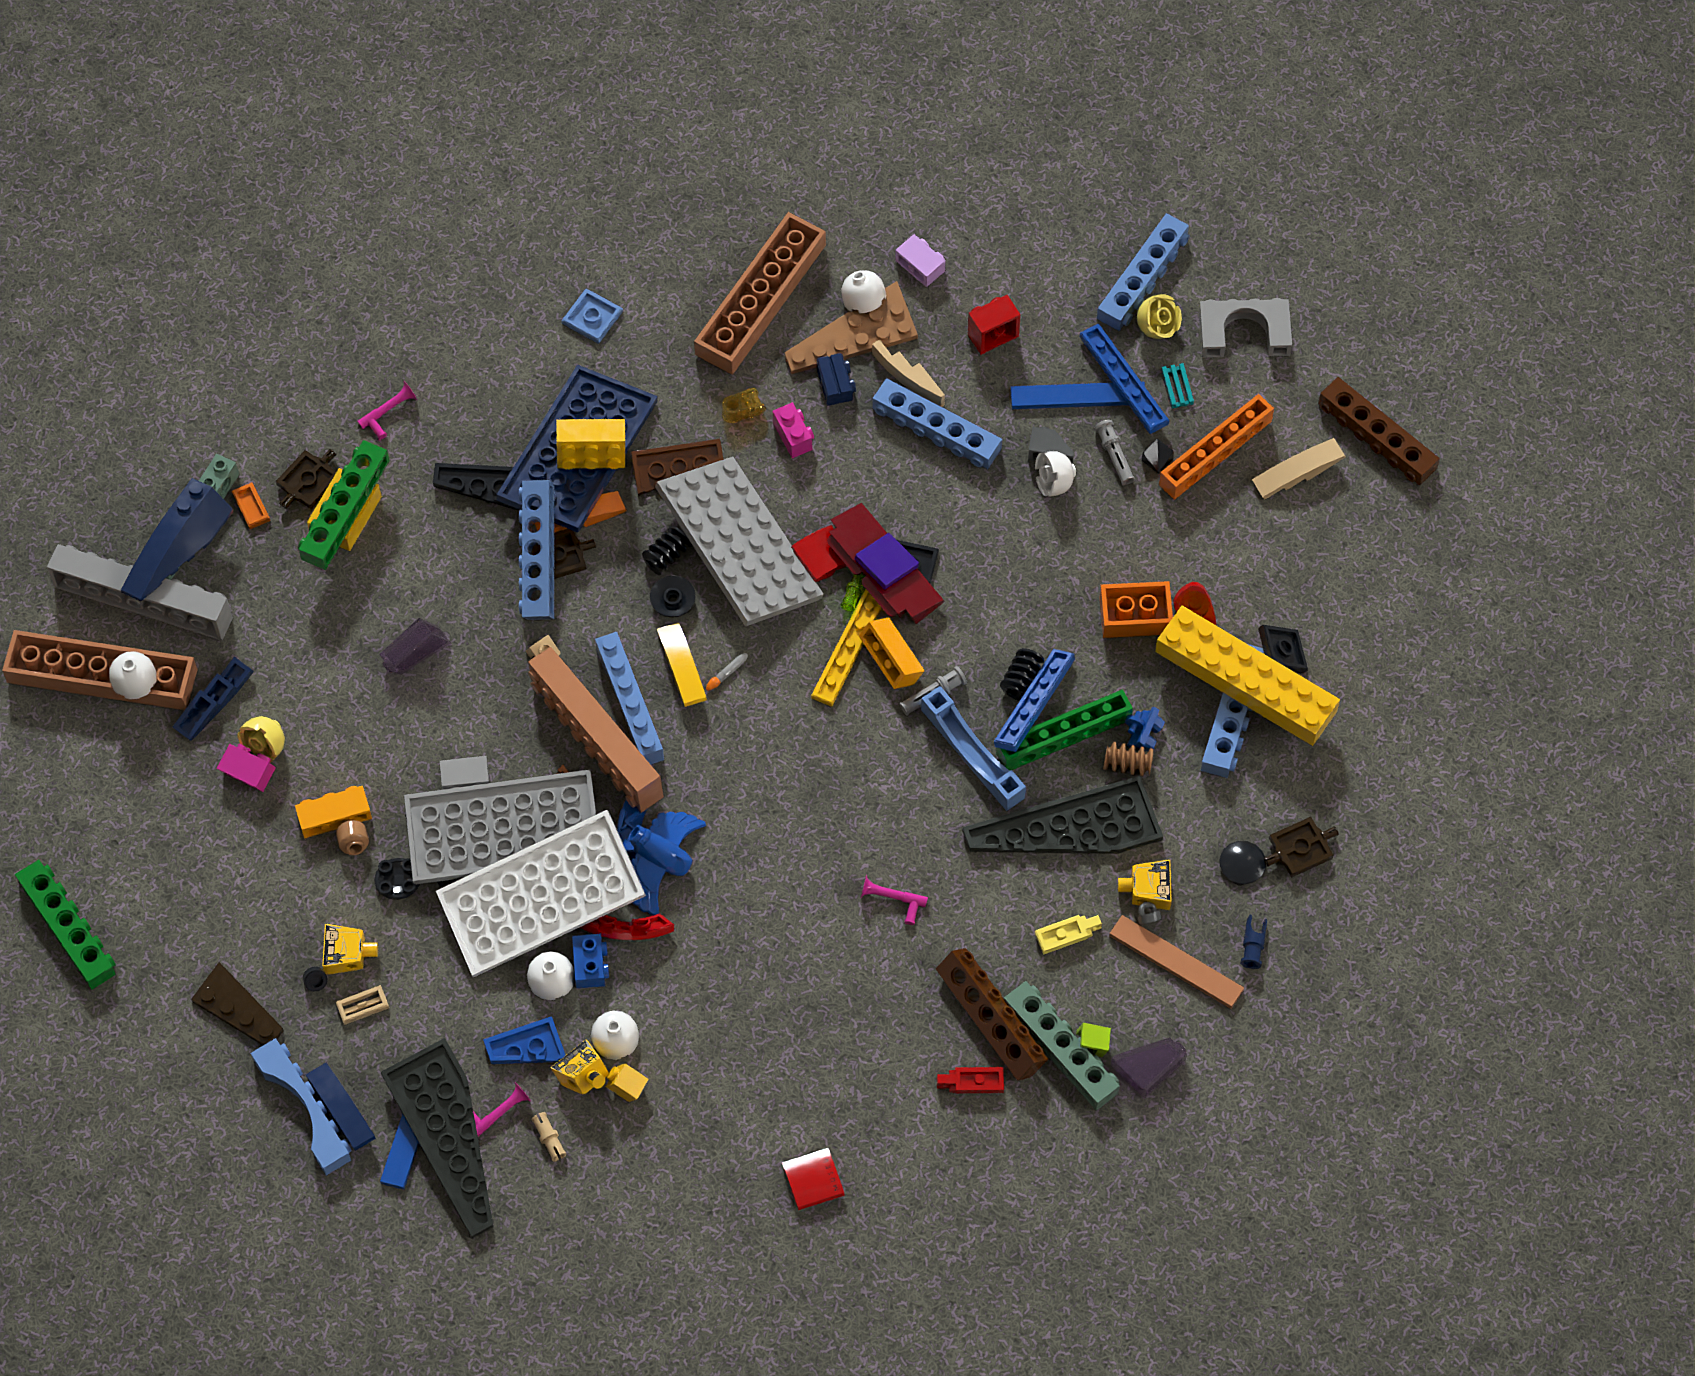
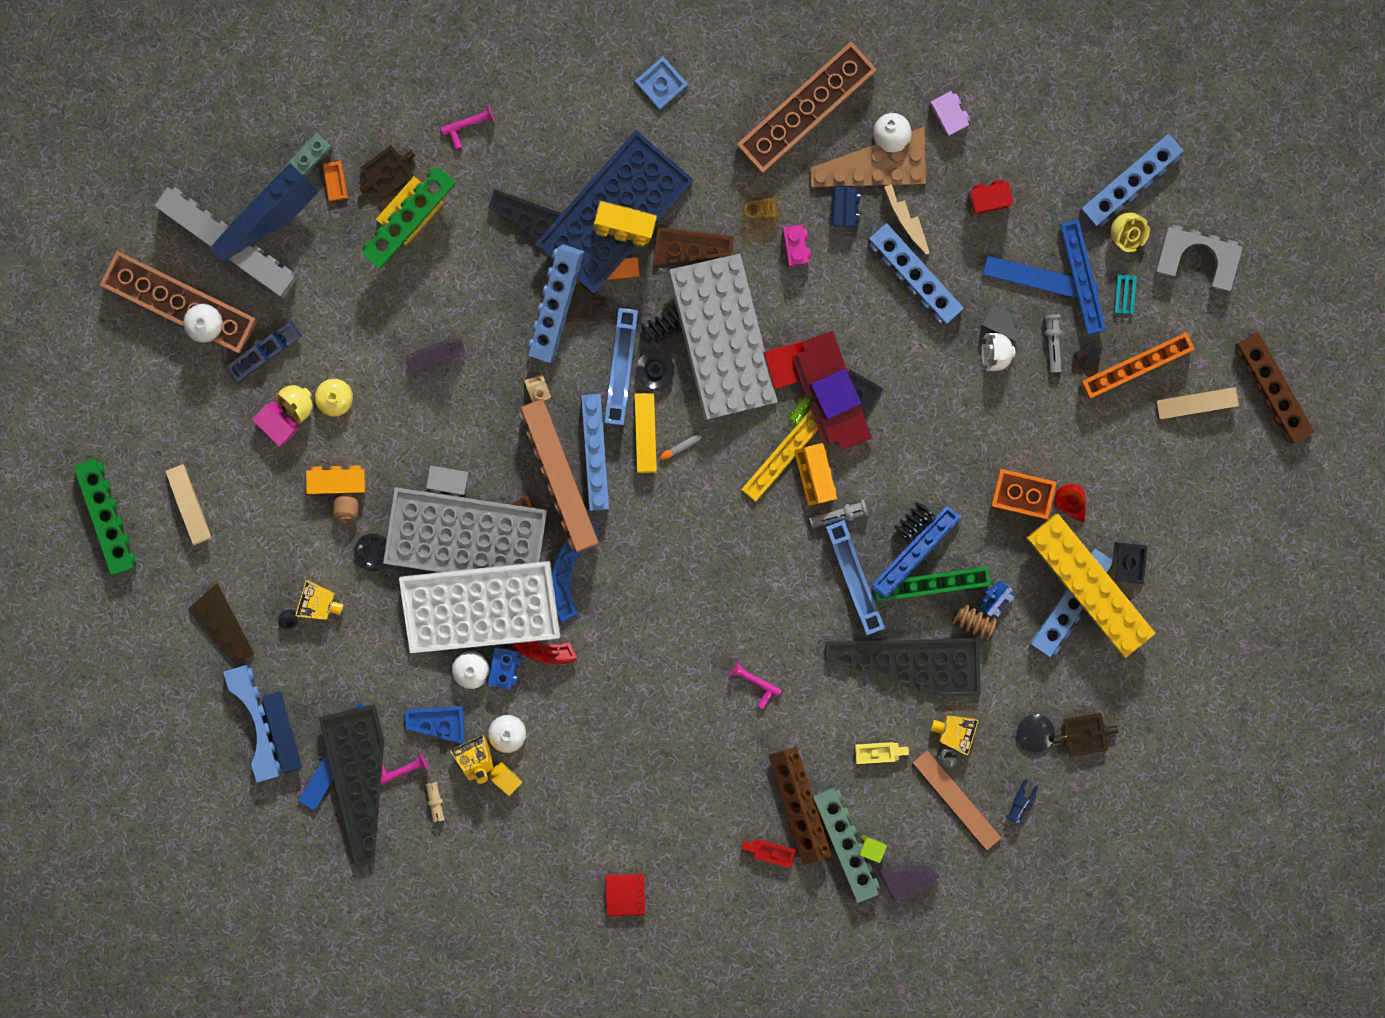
camera: 15 degrees right, 25 degrees up
(164, 883) = (188, 504): none -> tan slope
(307, 725) = (334, 397): none -> light yellow cylinder
(364, 1013) = (335, 648): tan tile -> none
(632, 602) = (621, 366): none -> medium blue arch
(659, 852) = (582, 592): blue animal -> none

